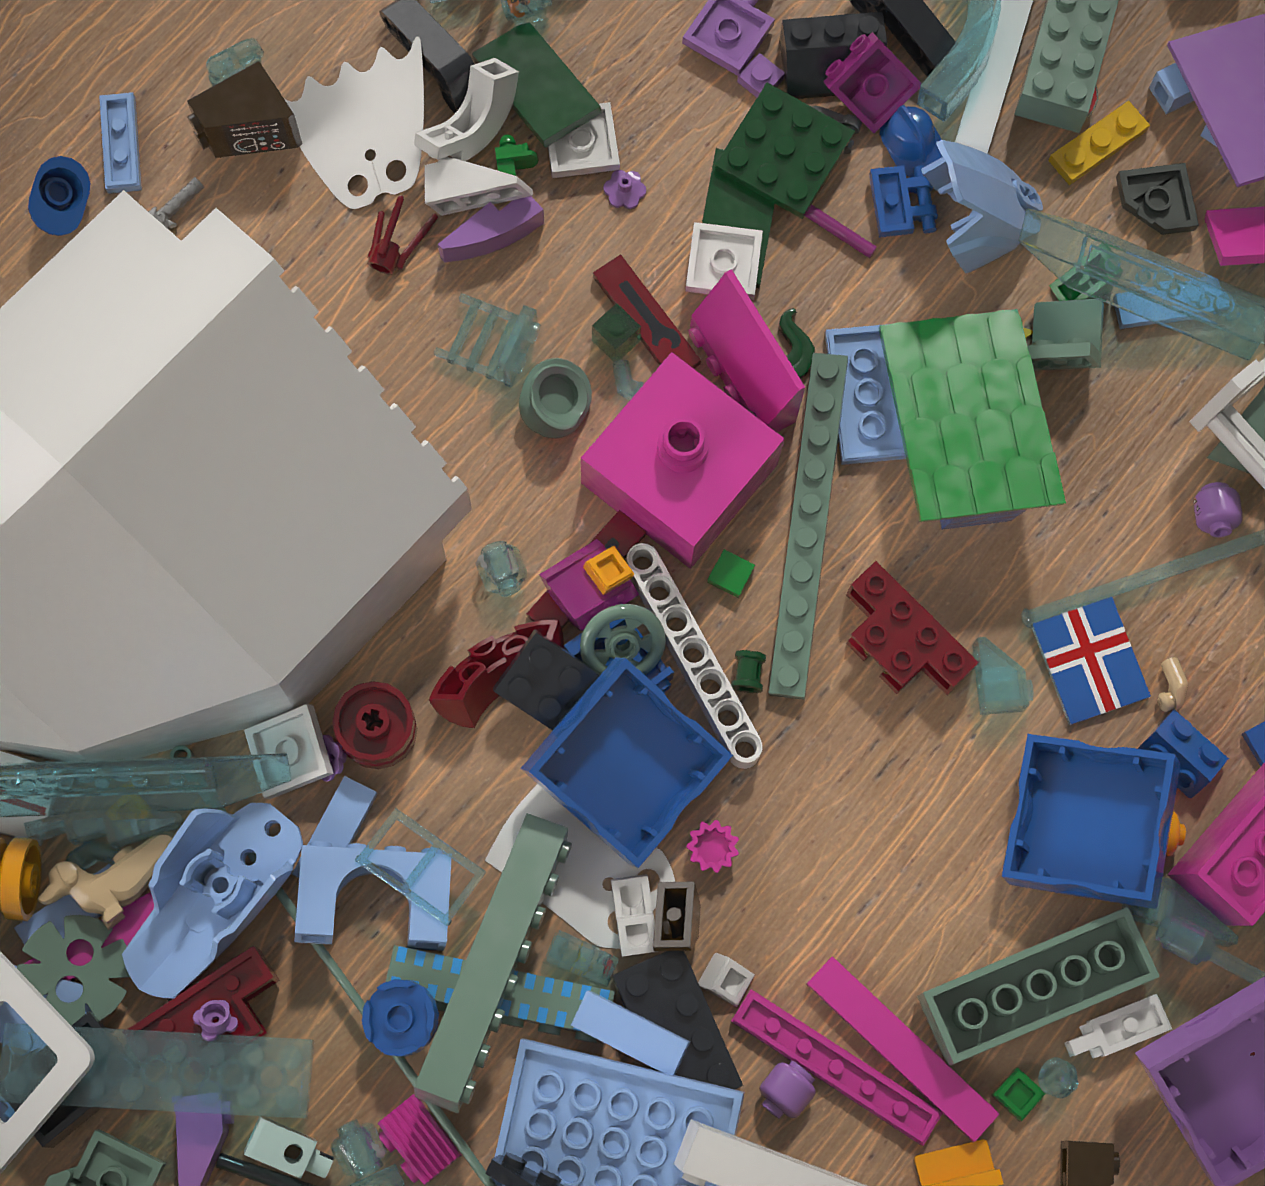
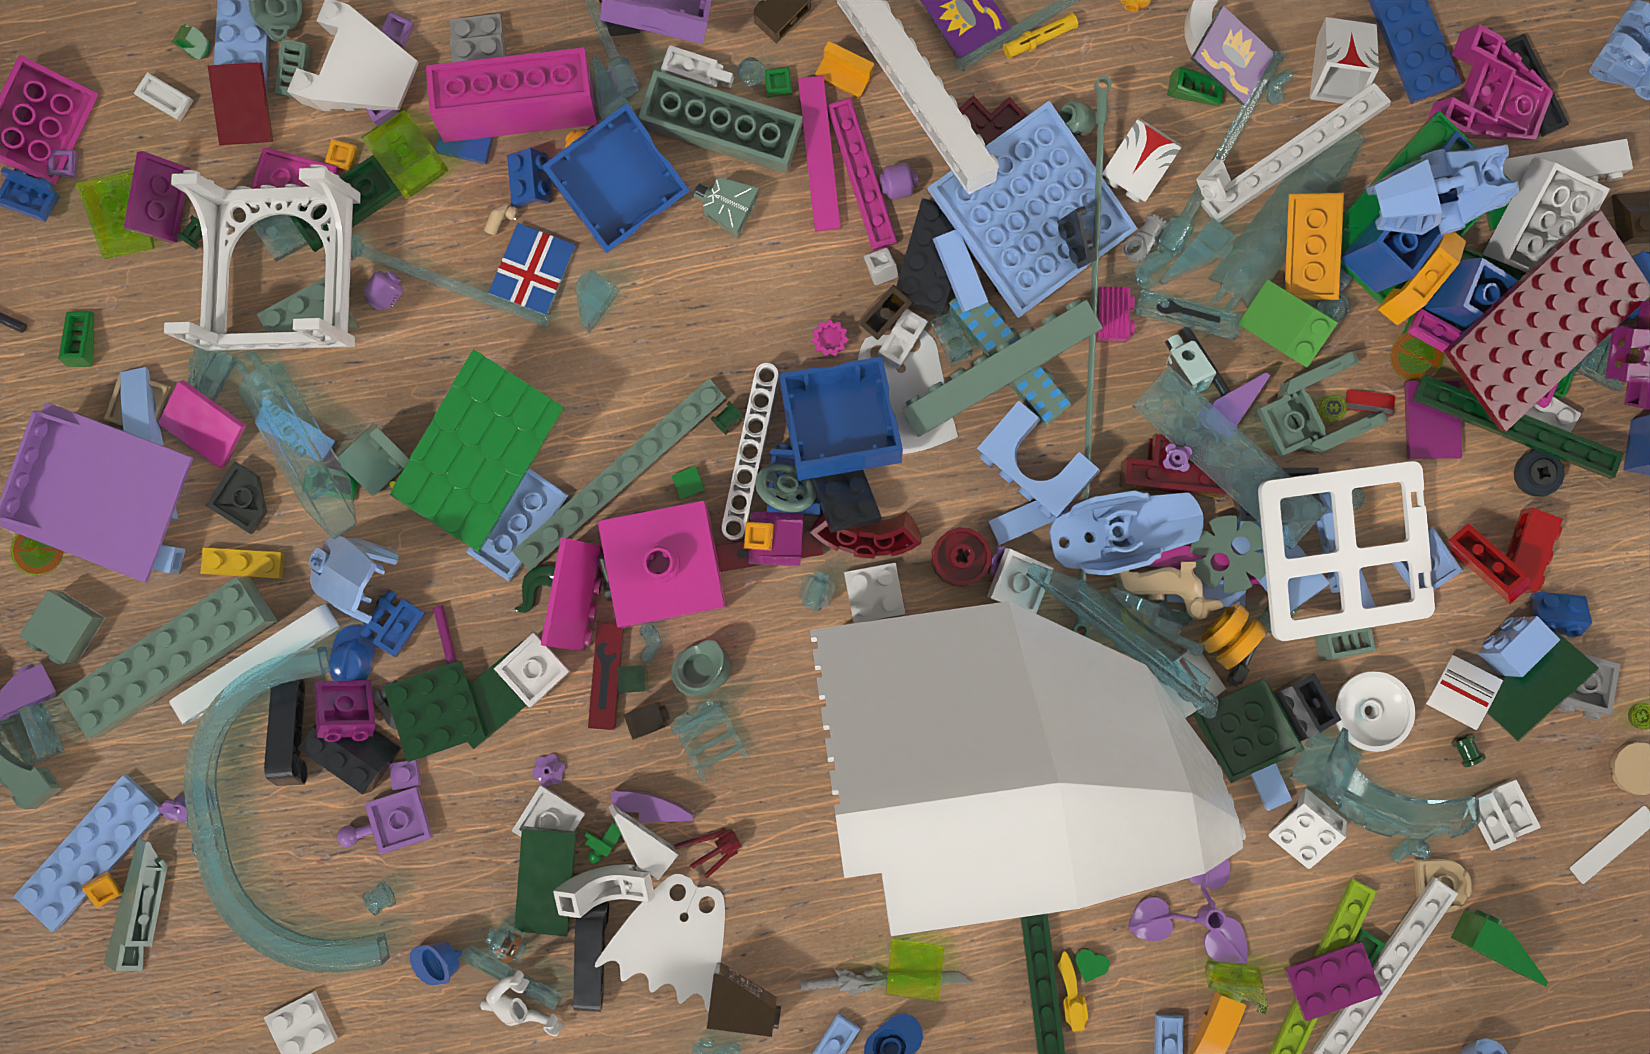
camera: 140 degrees left, 10 degrees up
(358, 1149) = (1149, 335): clear light blue head -> none
(400, 1018) = (1075, 380): blue tile -> none
(437, 844) = (1009, 412): clear light blue window -> none
(438, 619) = (874, 593): none -> white plate
(567, 301) = (647, 720): none -> dark brown slope
(904, 635) = (625, 365): dark red piece -> none
(950, 902) = (727, 203): none -> sand green torso

